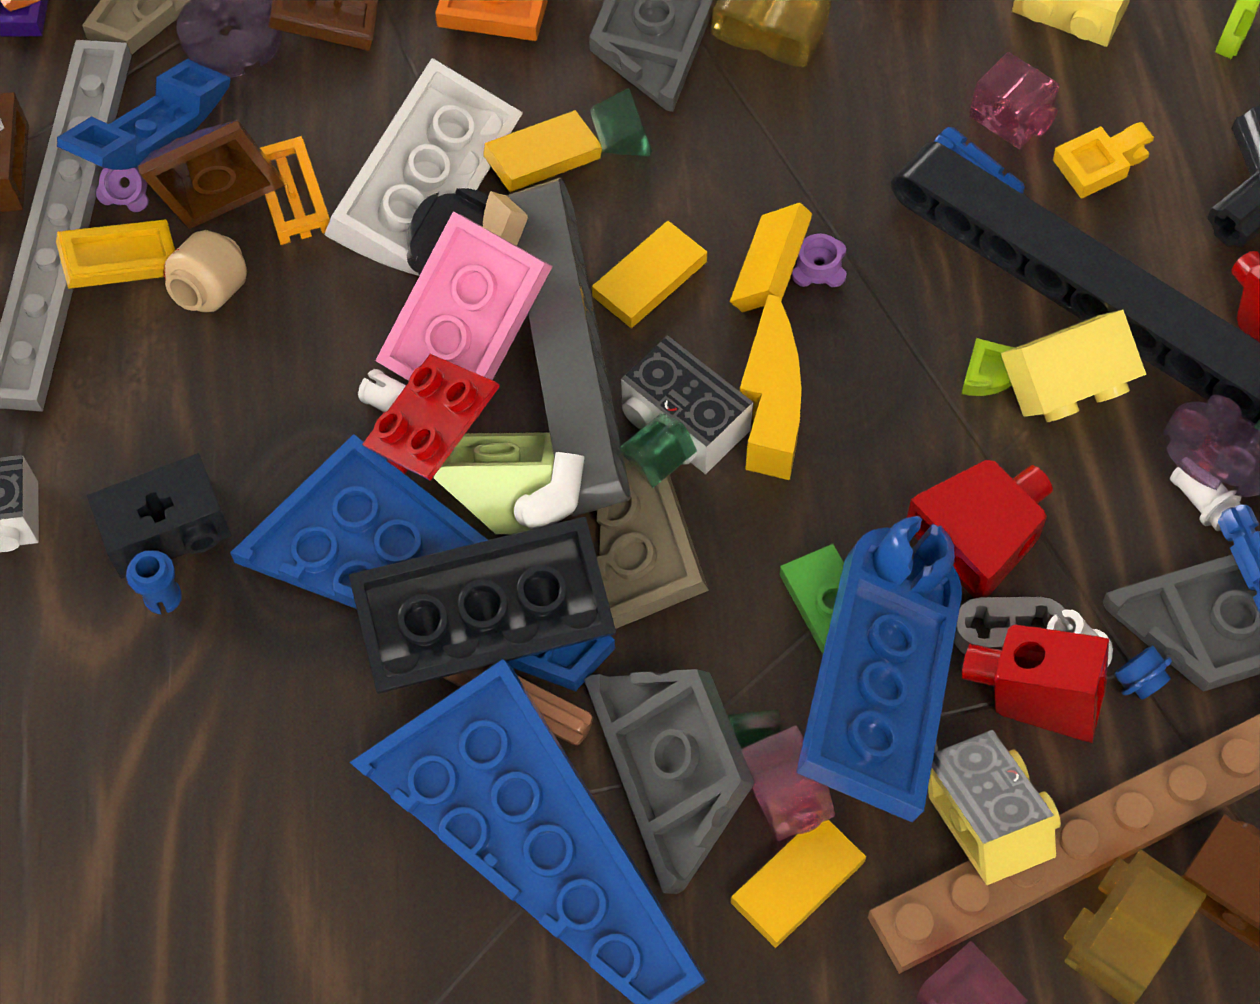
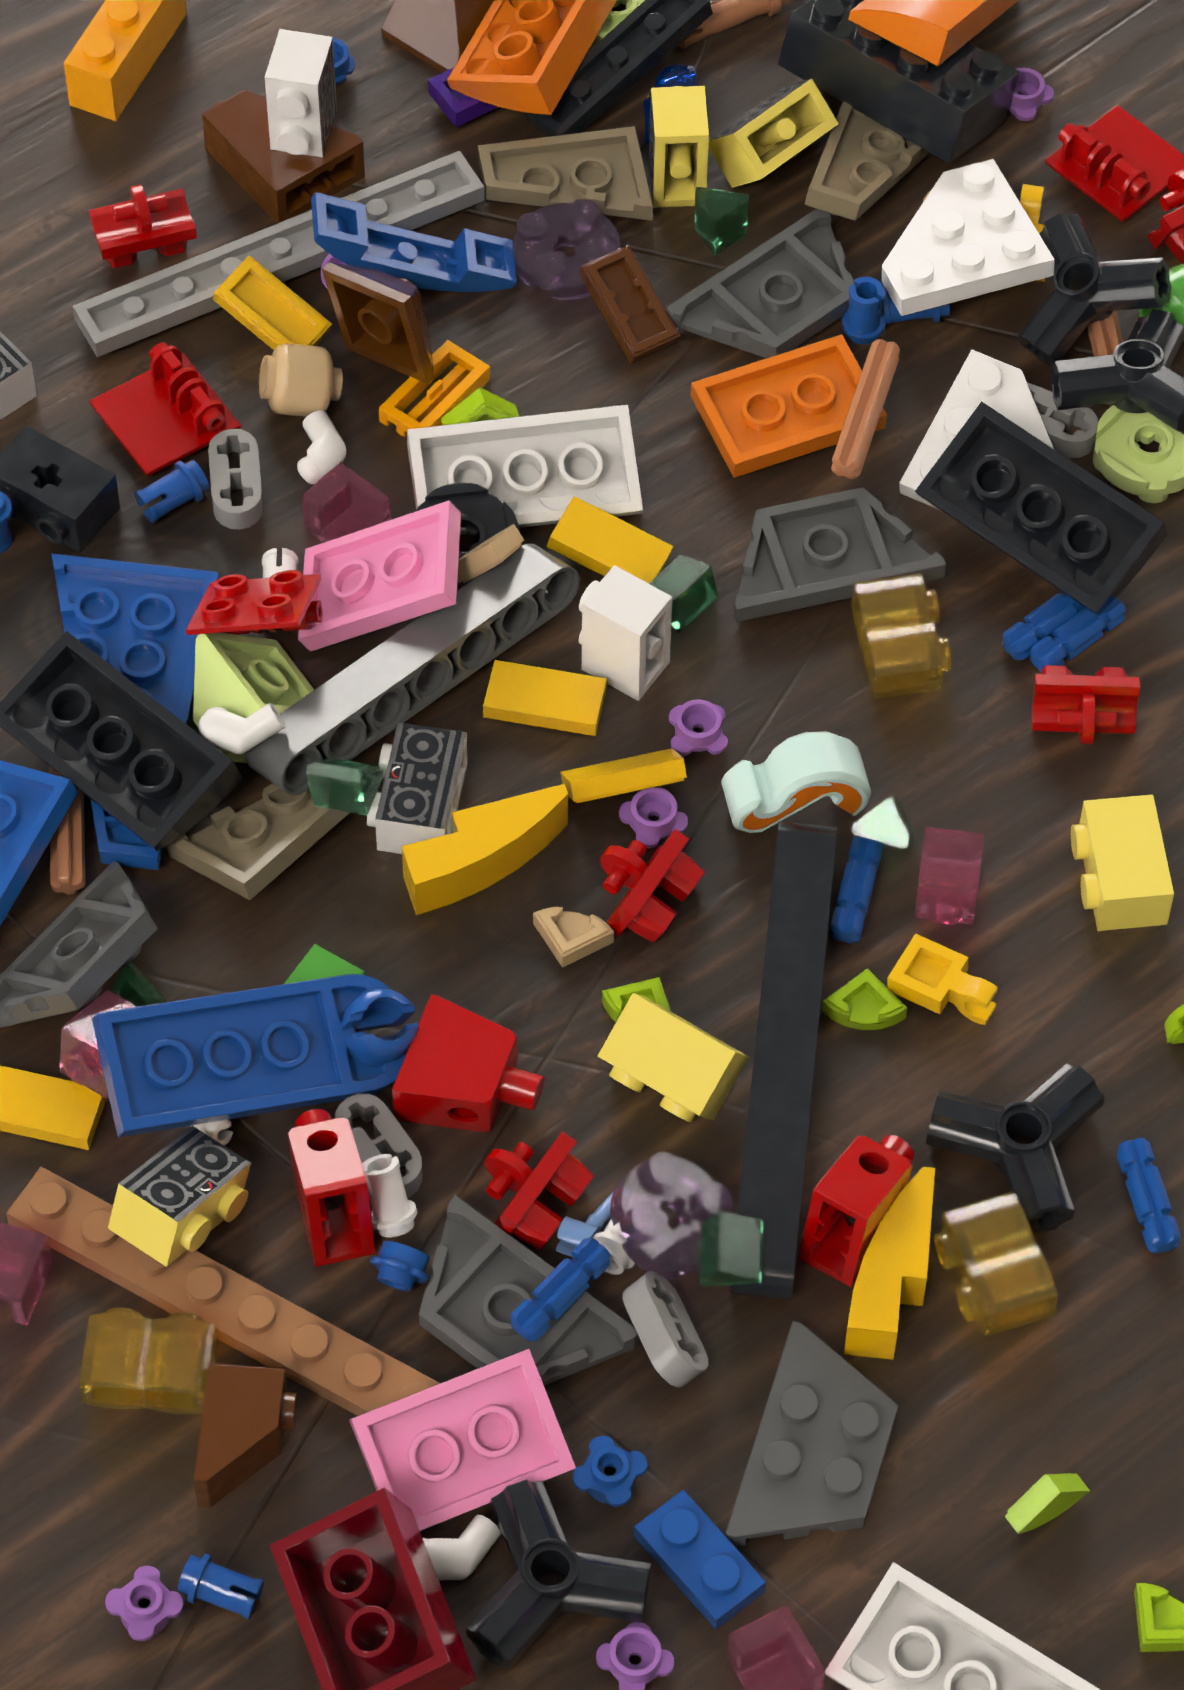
camera: 55 degrees right, 5 degrees down
(146, 390) = (164, 411): none -> red hinge
(235, 422) = (175, 489): none -> blue pin
(262, 368) = (245, 478): none -> light grey beam
(281, 290) = (326, 447): none -> white arm
(343, 160) = (480, 406): none -> lime tile
(364, 308) = (343, 505): none -> clear pink panel
(651, 174) = (625, 631): none -> white brick
(757, 175) = (701, 715): none -> medium lavender plate
(865, 149) = (793, 778): none -> light aqua animal
(885, 297) = (666, 867): none -> red hips
(888, 378) = (572, 933): none -> tan tile
(939, 112) = (886, 824): none -> clear green slope
(1087, 212) = (864, 1004): none -> lime tile
(1128, 533) = (556, 1172): none -> red hips
(1189, 523) = (574, 1231): none -> medium blue hand

